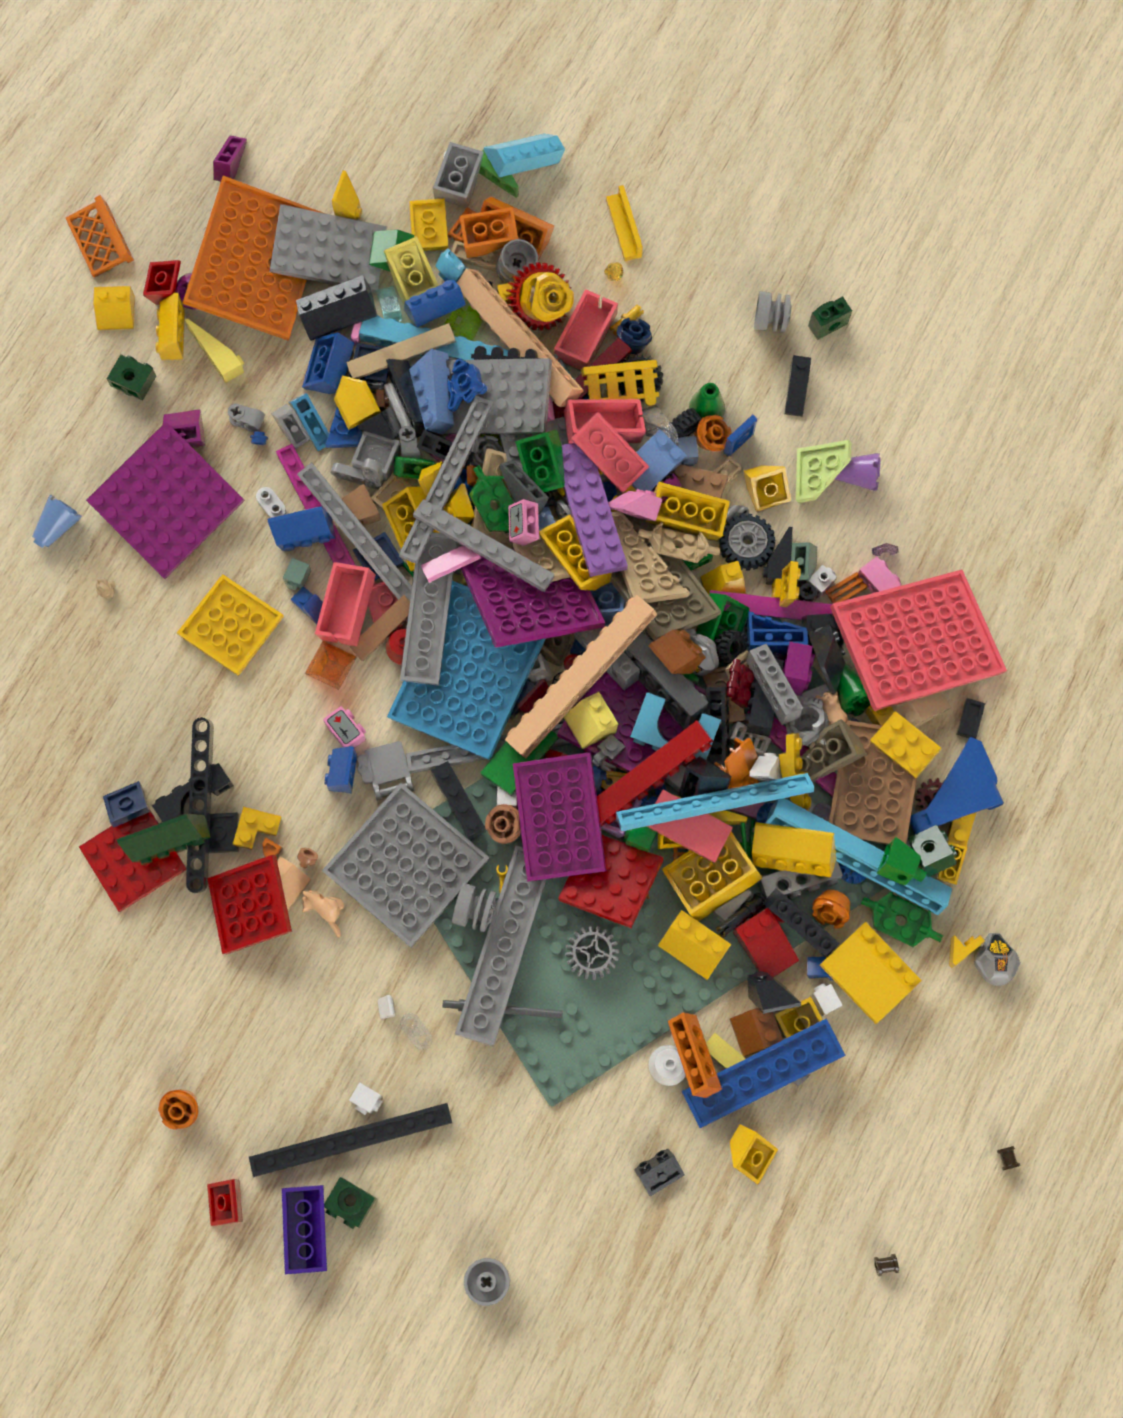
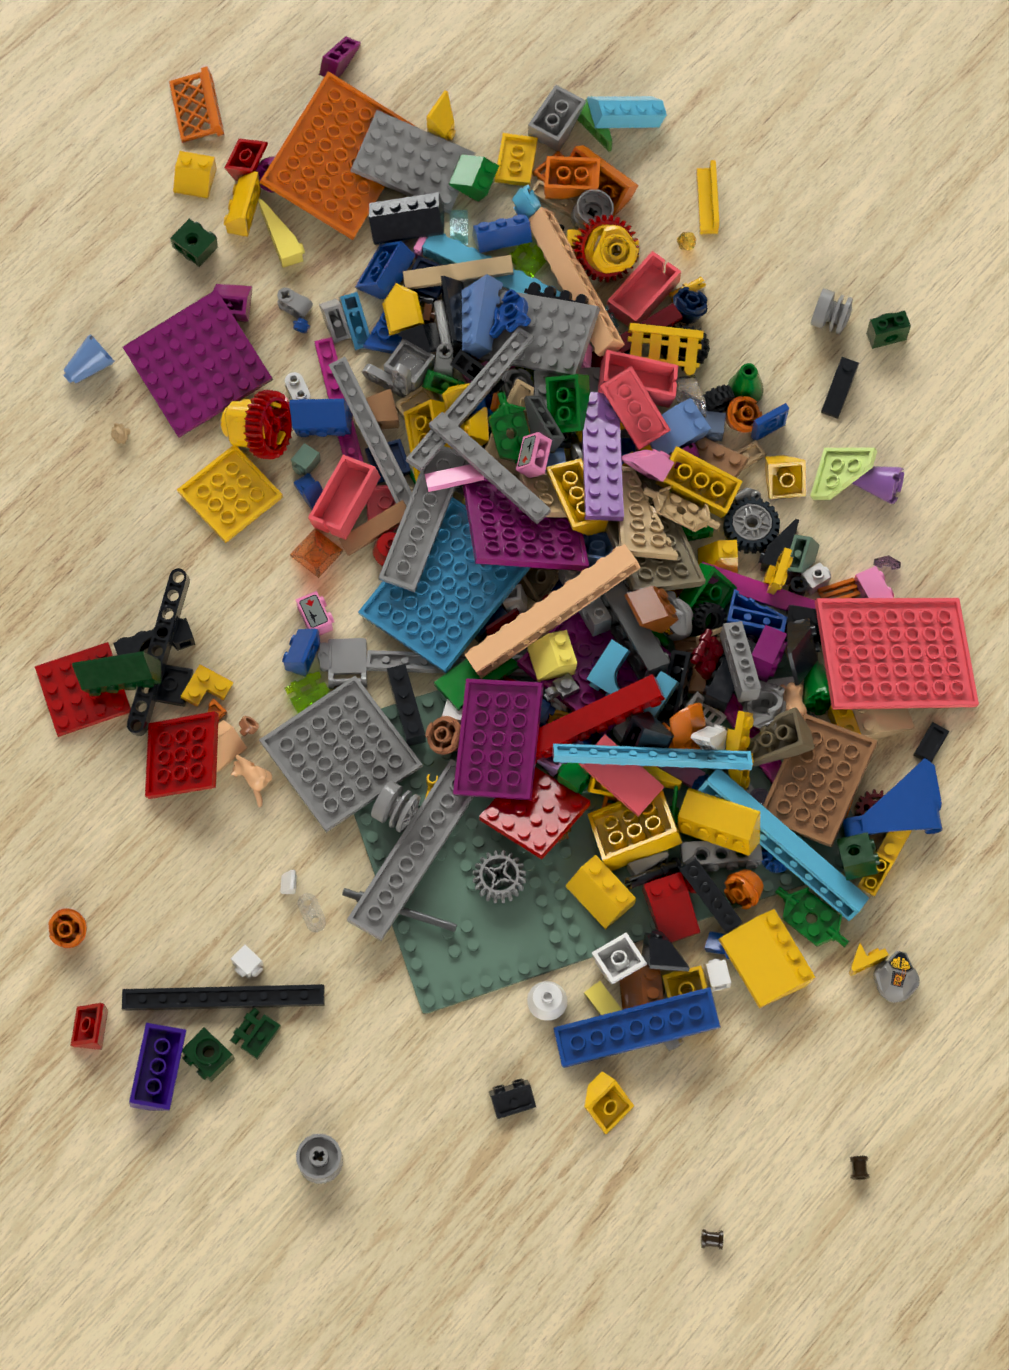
camera: 15 degrees right, 5 degrees down
(126, 804) = (89, 636): dark blue plate -> none
(243, 549) = (259, 424): none -> red piece
(361, 813) = (305, 699): none -> clear neon green plate
(397, 1170) = (261, 1035): none -> dark green plate
(410, 269) = (486, 195): light yellow slope -> none
(694, 1055) = (573, 994): orange brick -> none
(729, 1009) = (618, 958): none -> white slope
(900, 863) = (821, 859): green torso -> none
(905, 744) = (855, 748): yellow plate -> none

